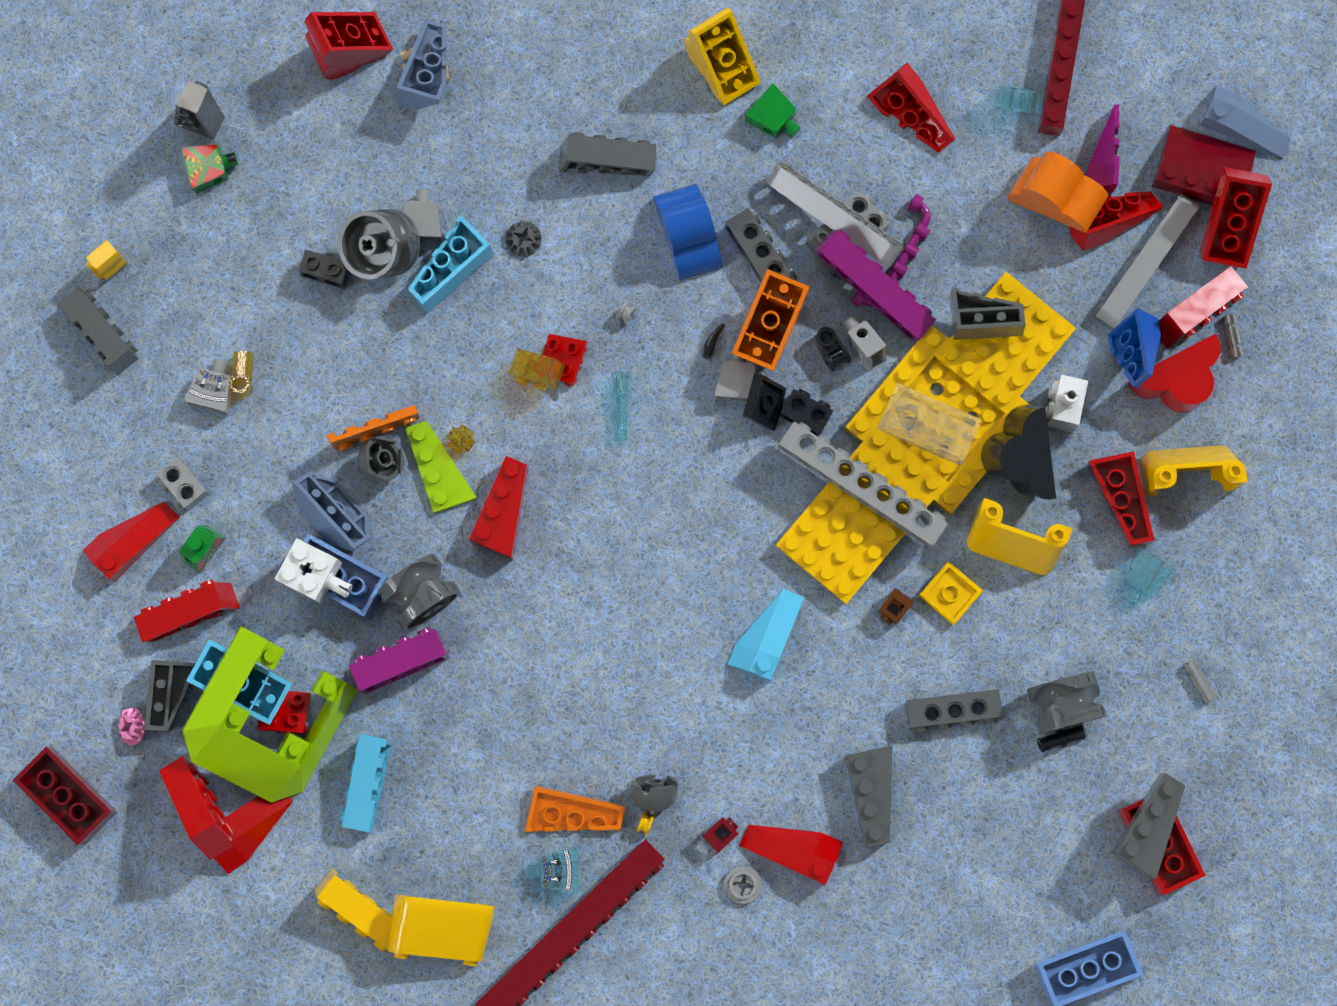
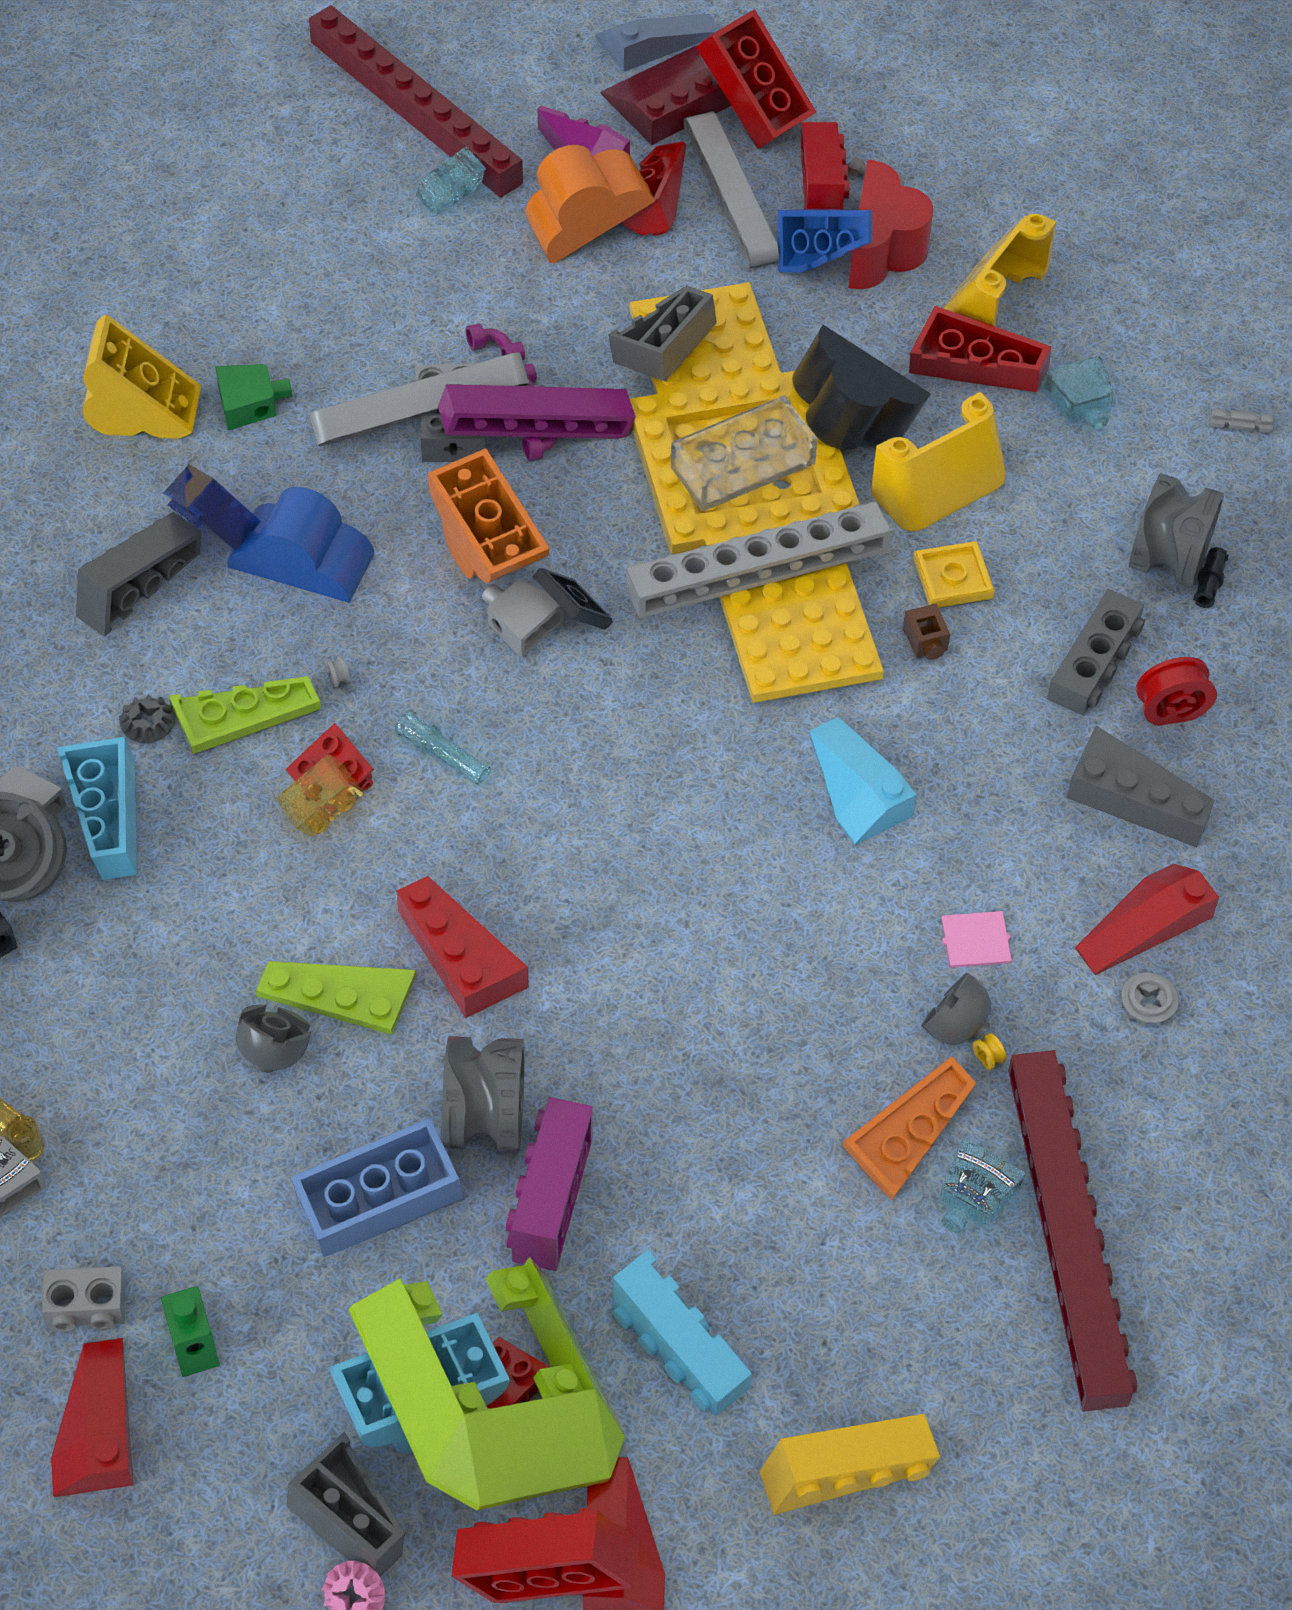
camera: 55 degrees left, 25 degrees down
(185, 610) = (256, 1407): red wedge -> none
(323, 572) = (366, 1202): white brick -> none
(331, 511) = (285, 1141): sand blue wedge -> none
(372, 427) = (220, 1035): orange wing -> none
(439, 929) = (948, 1364): yellow windscreen -> none
(460, 439) = (328, 935): clear yellow gear -> none
(558, 279) = (229, 715): none -> lime wing
(668, 162) = (209, 504): none -> clear blue wedge
(710, 343) = (452, 619): black helmet -> none
(714, 769) = (976, 939): none -> bright pink piece
(714, 840) = (1068, 978): dark red brick -> none
(748, 221) = (384, 502): dark grey brick -> none
(804, 415) = (607, 572): black brick -> none
(832, 350) = (564, 506): black piece -> none
(865, 343) = (593, 467): light grey torso -> none
(911, 103) = (357, 275): red wedge -> none
(952, 774) = (1176, 691): none -> red wheel
(1066, 403) = (826, 310): white brick -> none

